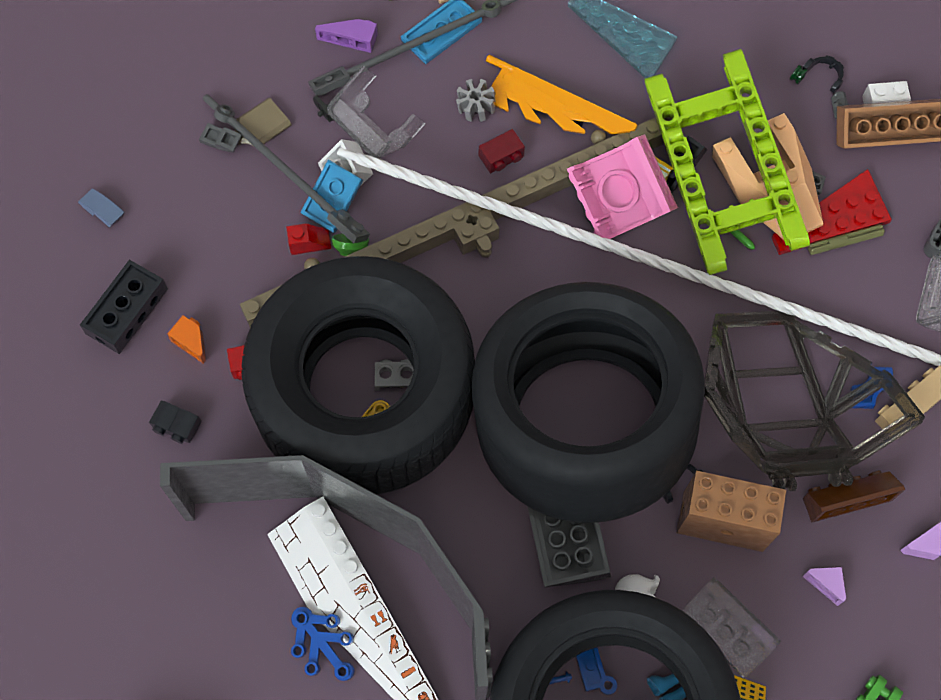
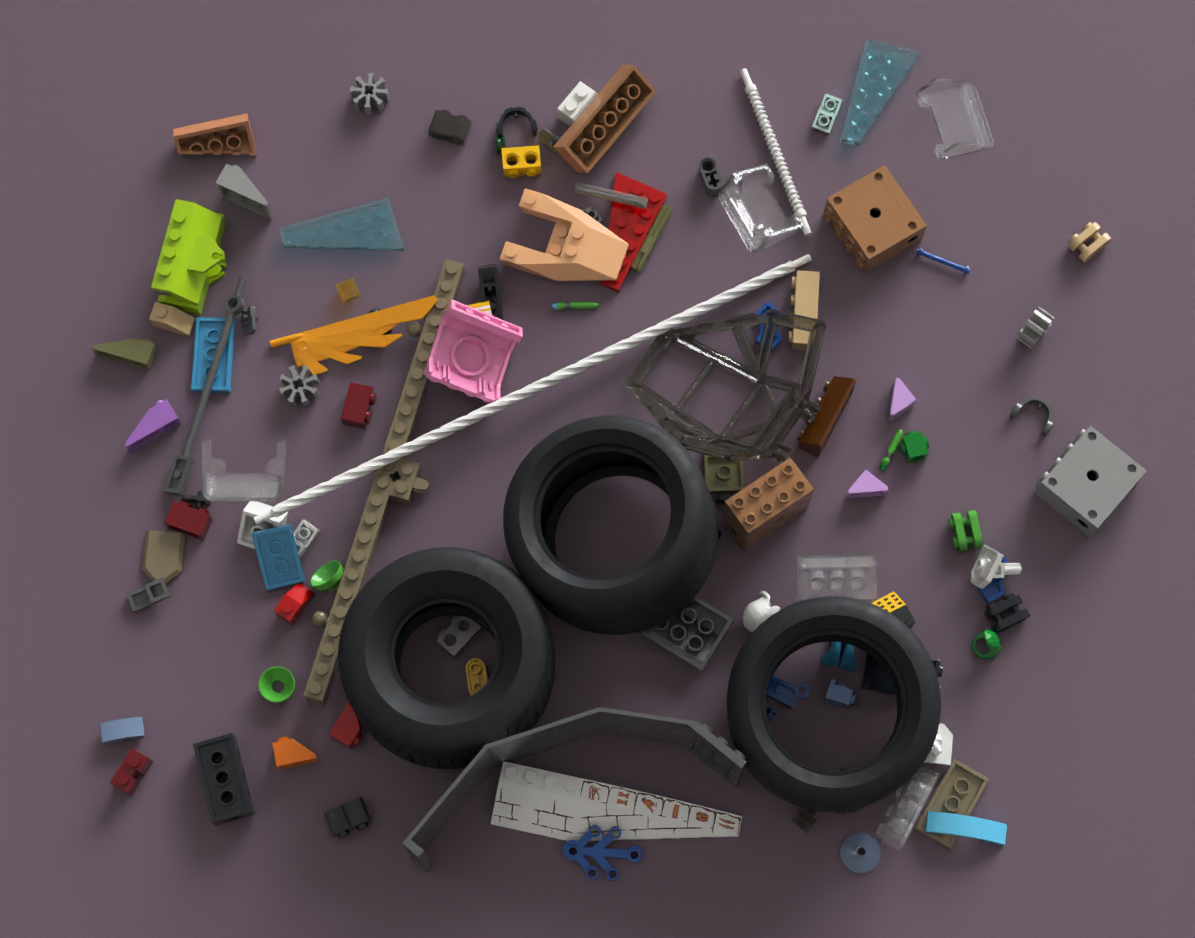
camera: 45 degrees left, 5 degrees up
(71, 238) = (129, 770): none -> dark red brick
(229, 273) = (273, 675): none -> bright green piece
(301, 115) = (188, 520): none -> dark red brick
(339, 218) = (305, 567): dark grey bar -> none
(366, 202) = (304, 536): none -> white slope
(493, 26) = (250, 318): none -> dark grey piece
(580, 71) = (347, 290): none -> clear yellow plate
(722, 457) = (723, 475): none -> olive tile
(763, 147) = (540, 231): lime beam -> none
(773, 31) = (450, 128): none -> clear smoke brick
(804, 96) = (521, 156): none -> yellow brick
(846, 180) = (611, 196): none -> light grey axle
(878, 575) = (891, 450): none -> bright green piece
(901, 591) = (914, 446): none -> green brick

